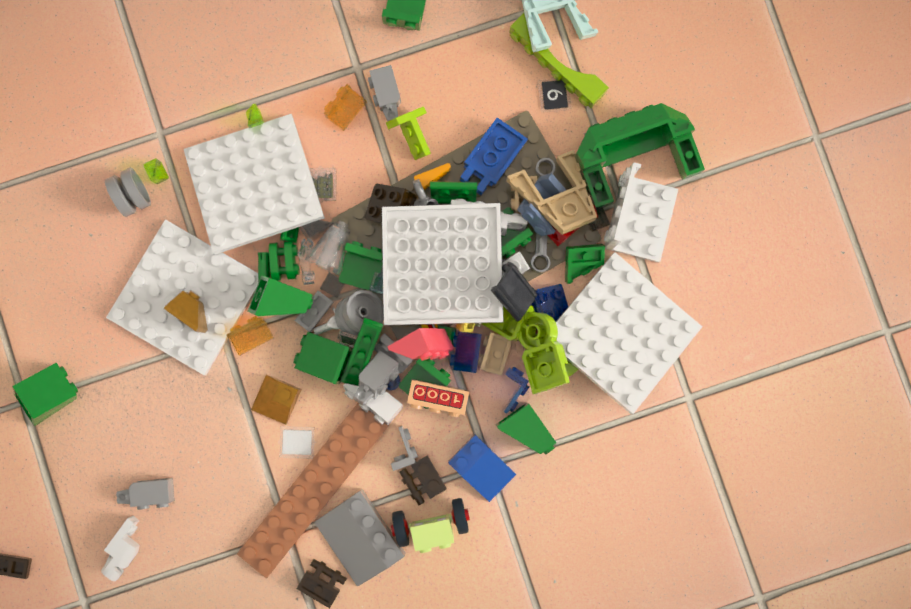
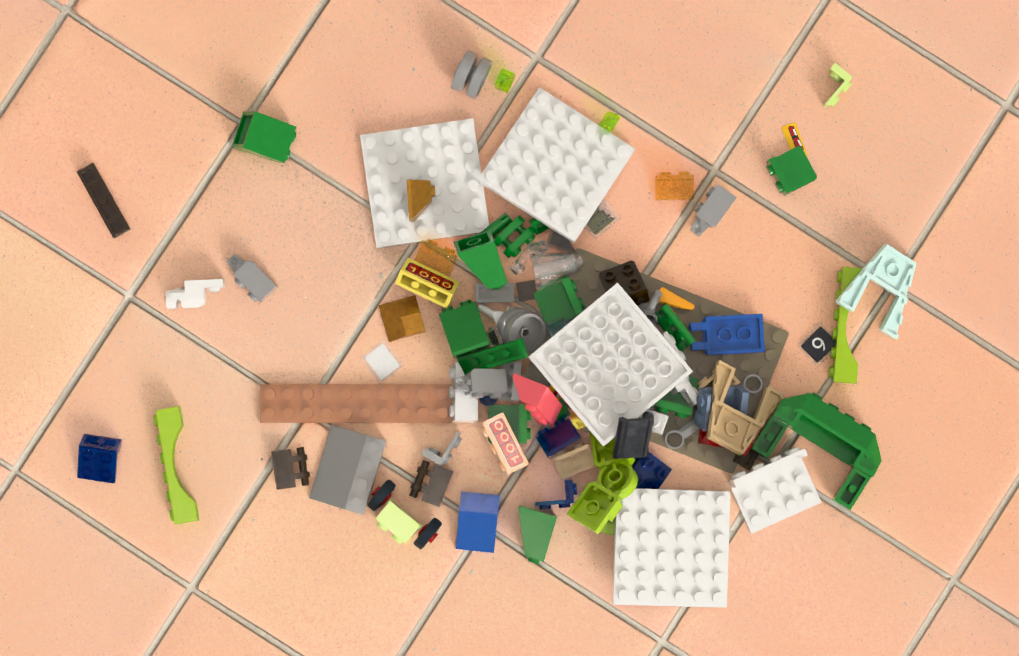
camera: 50 degrees right, 0 degrees up
(262, 357) = (427, 282): none -> light yellow brick
(412, 132) = (697, 256): lime bracket -> none
(582, 260) = (703, 471): green wing -> none

